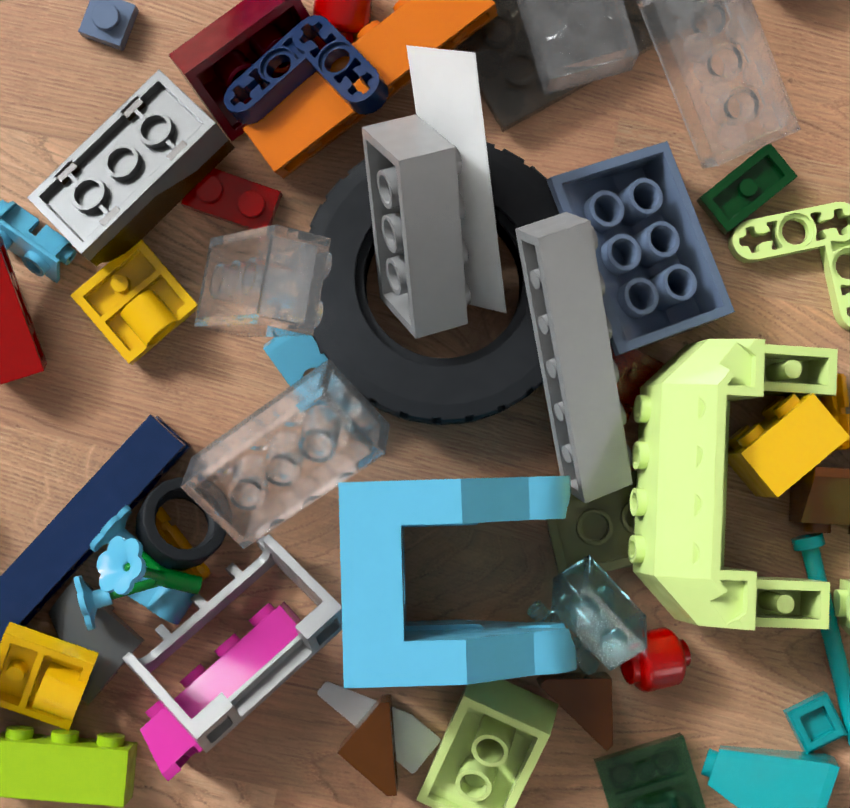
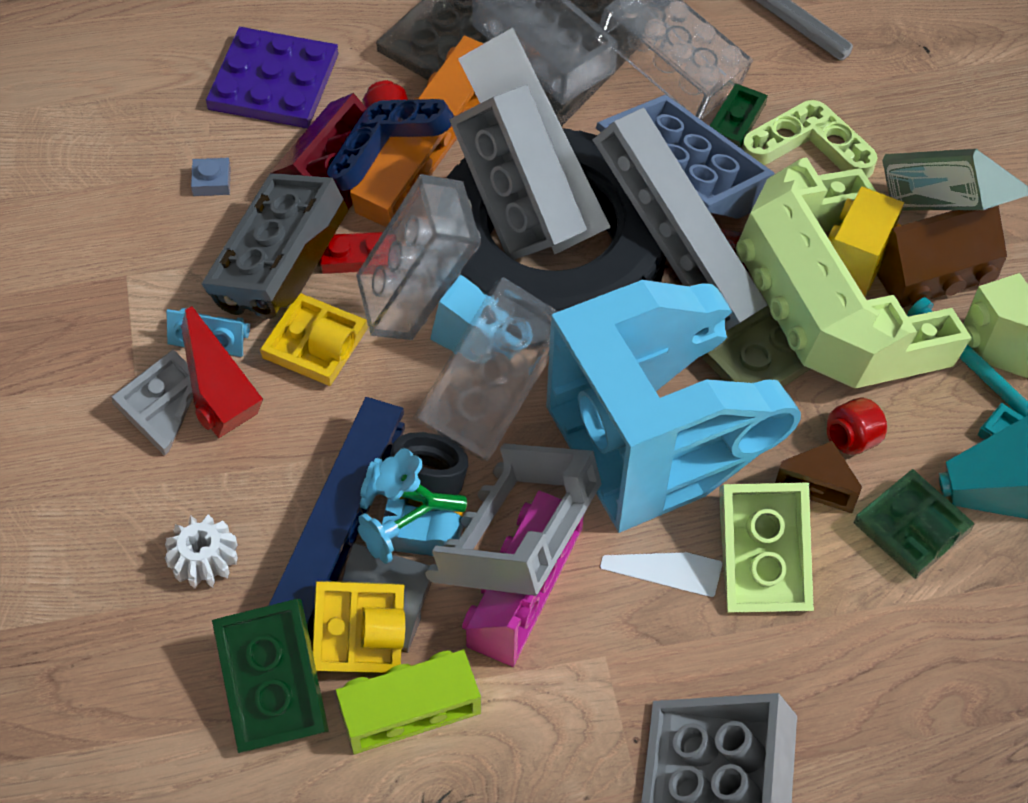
camera: 25 degrees left, 30 degrees down
(372, 747) = (672, 578): reddish brown slope -> none
(597, 614) = (816, 403): clear light blue brick -> none

